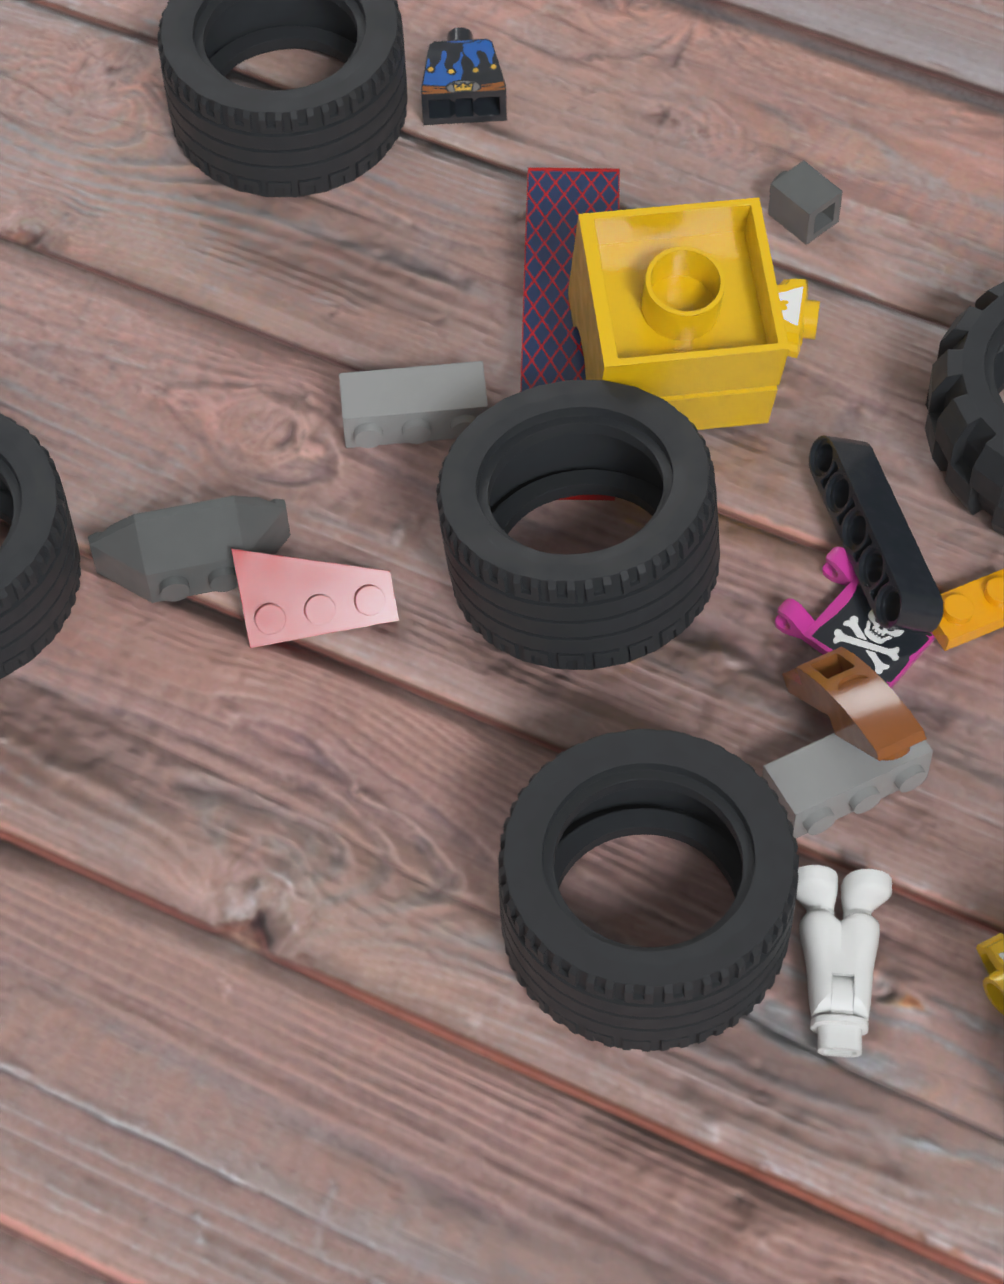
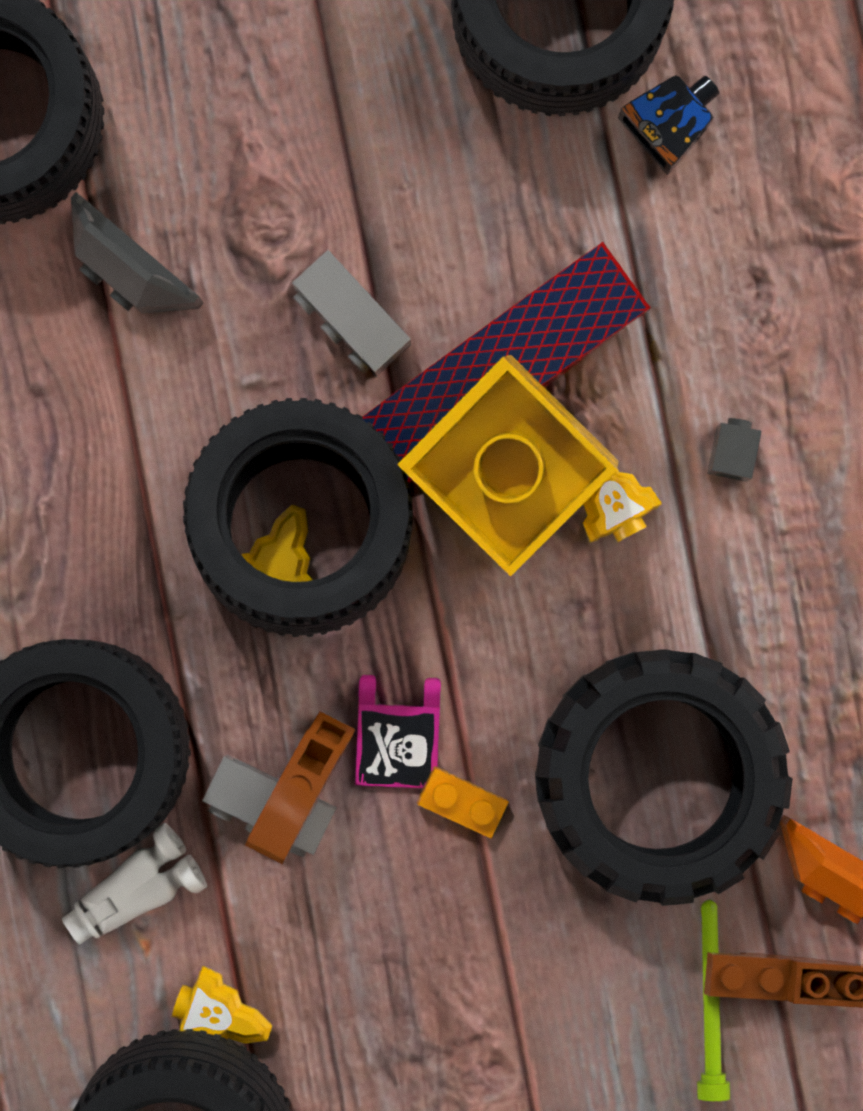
camera: 55 degrees right, 30 degrees up
(308, 598) = (140, 366): wing -> none
(875, 535) = (464, 702): black beam -> none

